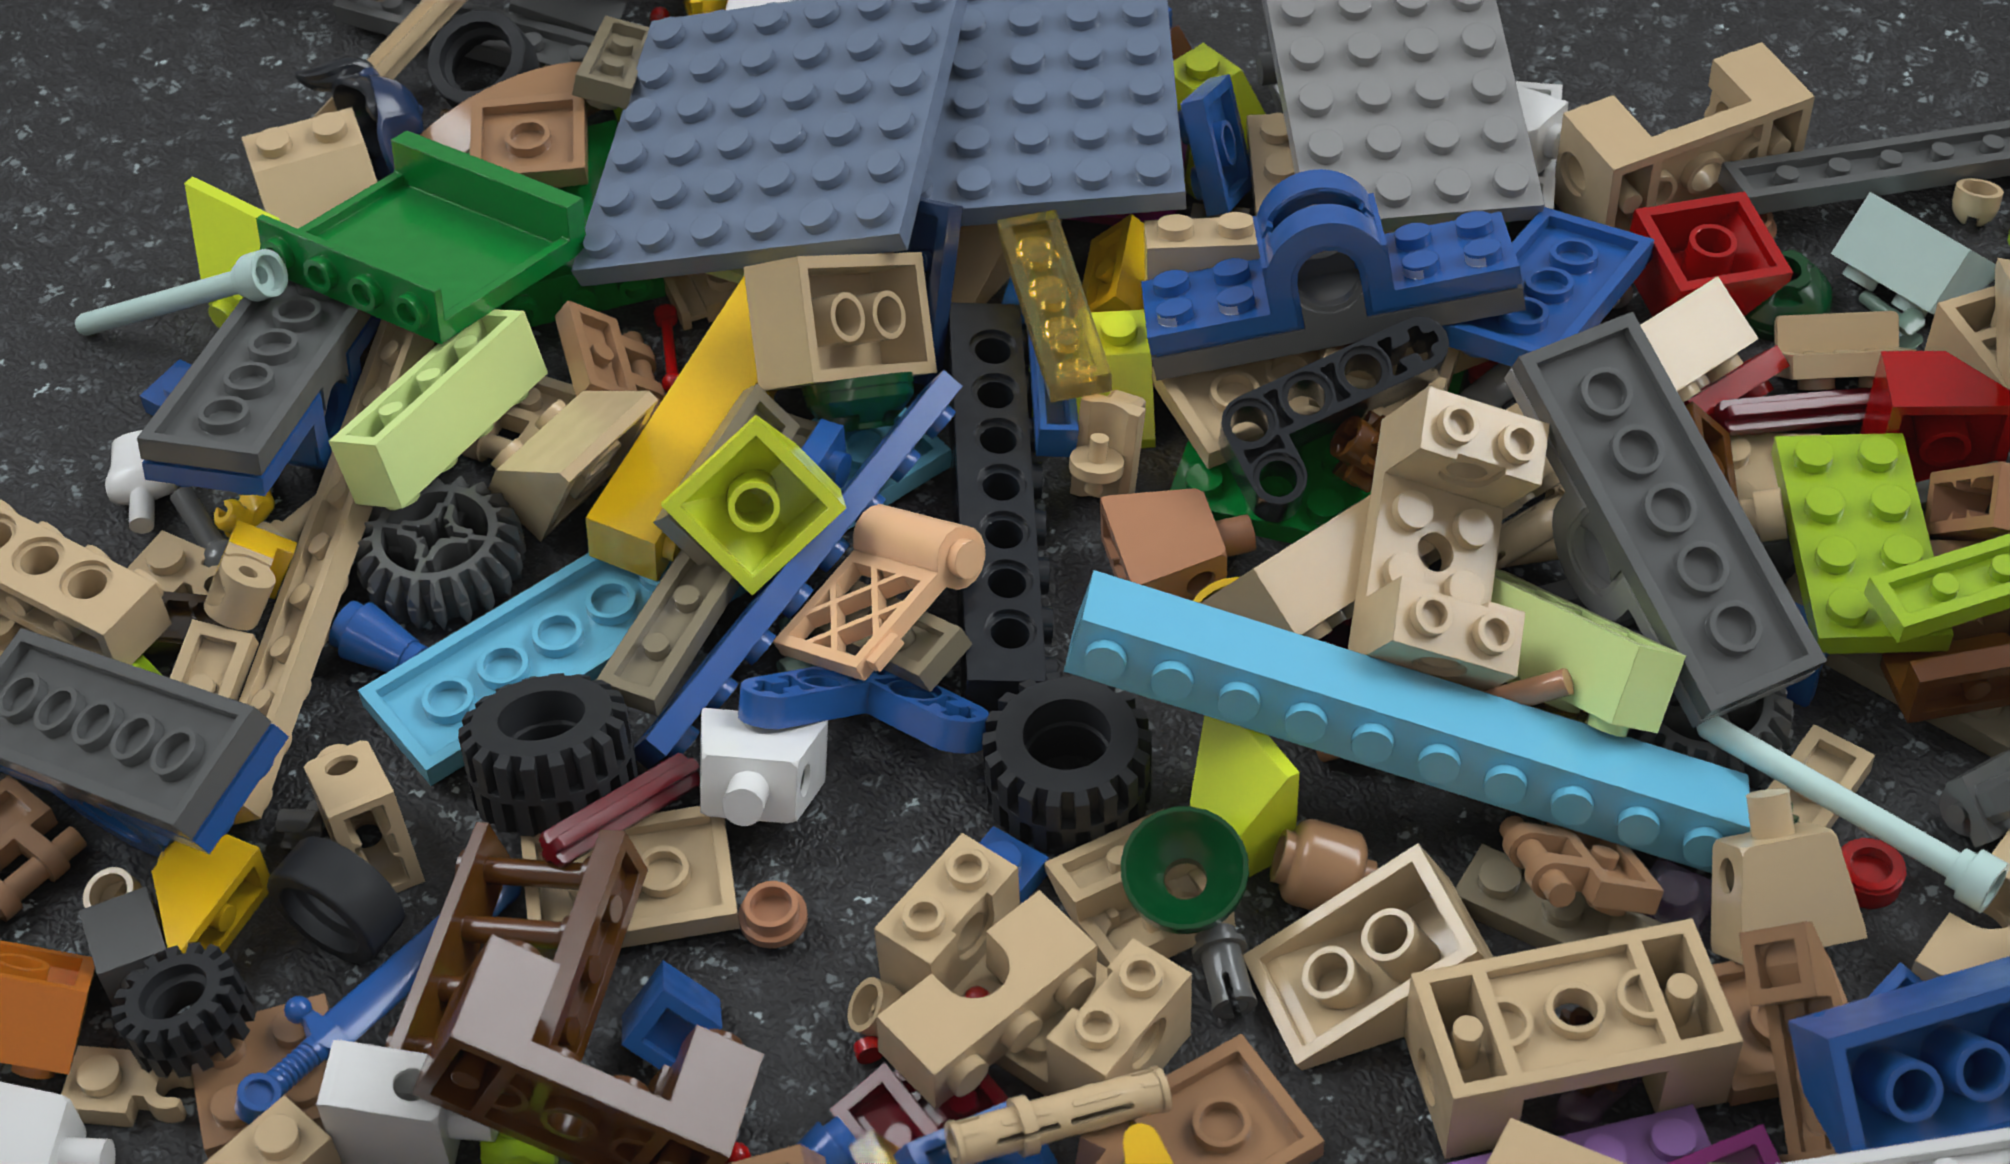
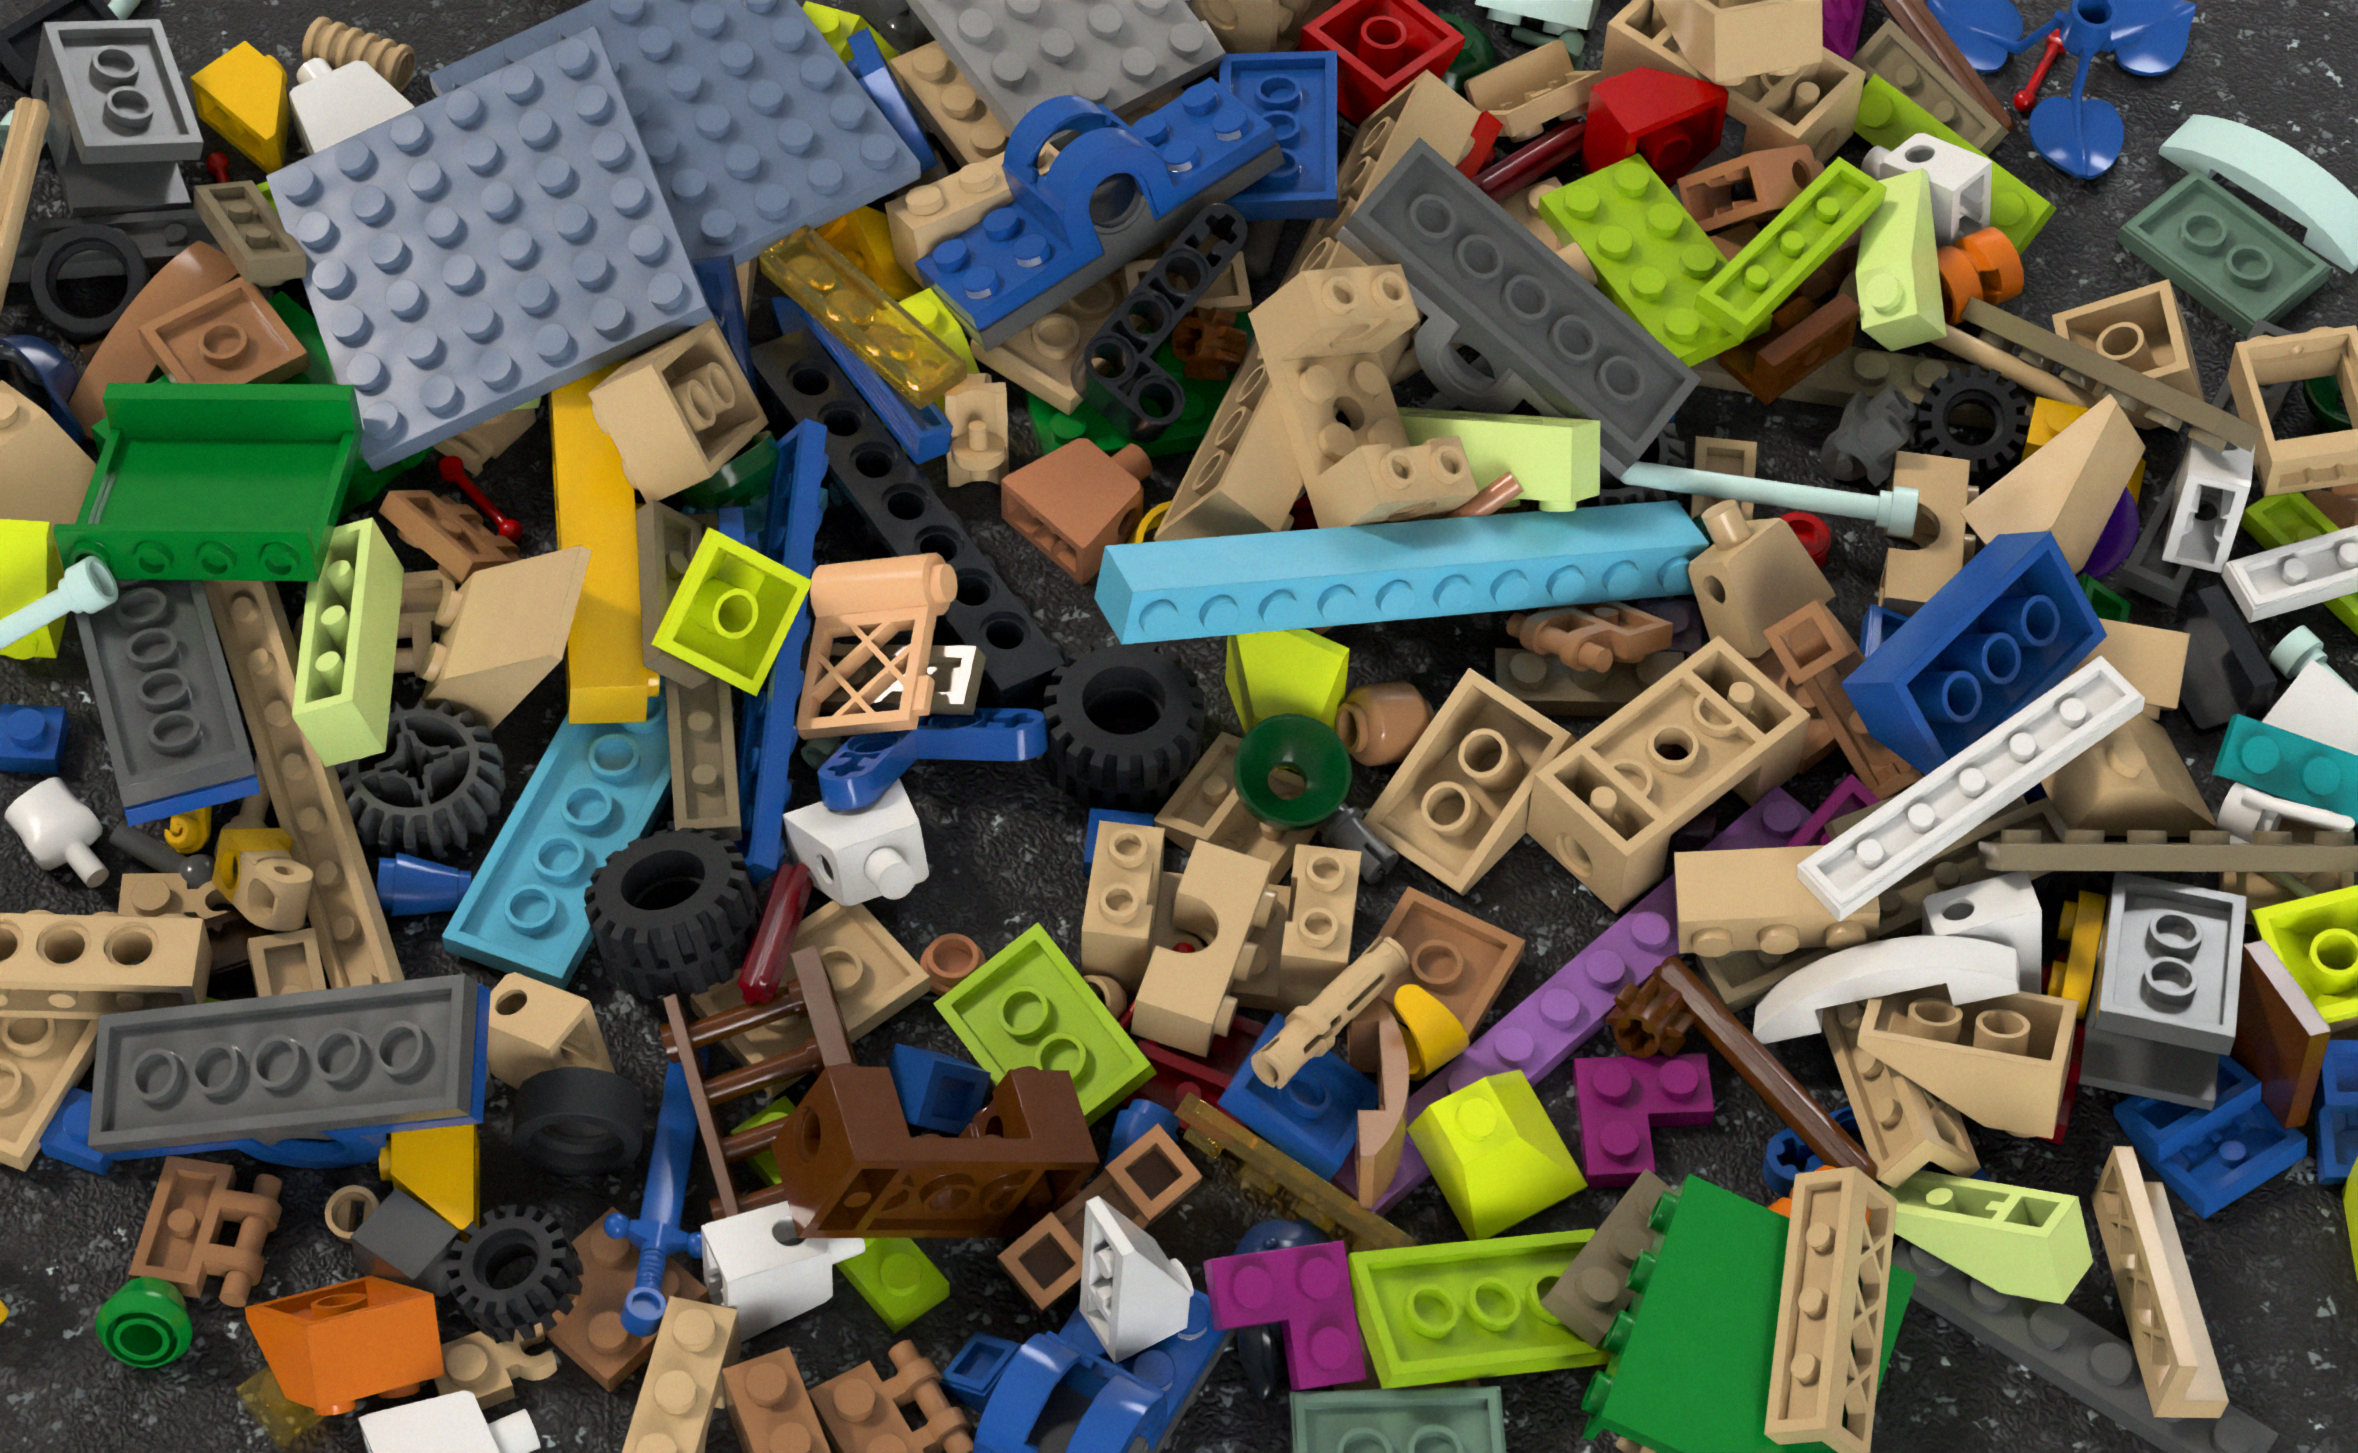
camera: 35 degrees left, 5 degrees up
(805, 1006) = (1041, 1013): none -> lime plate

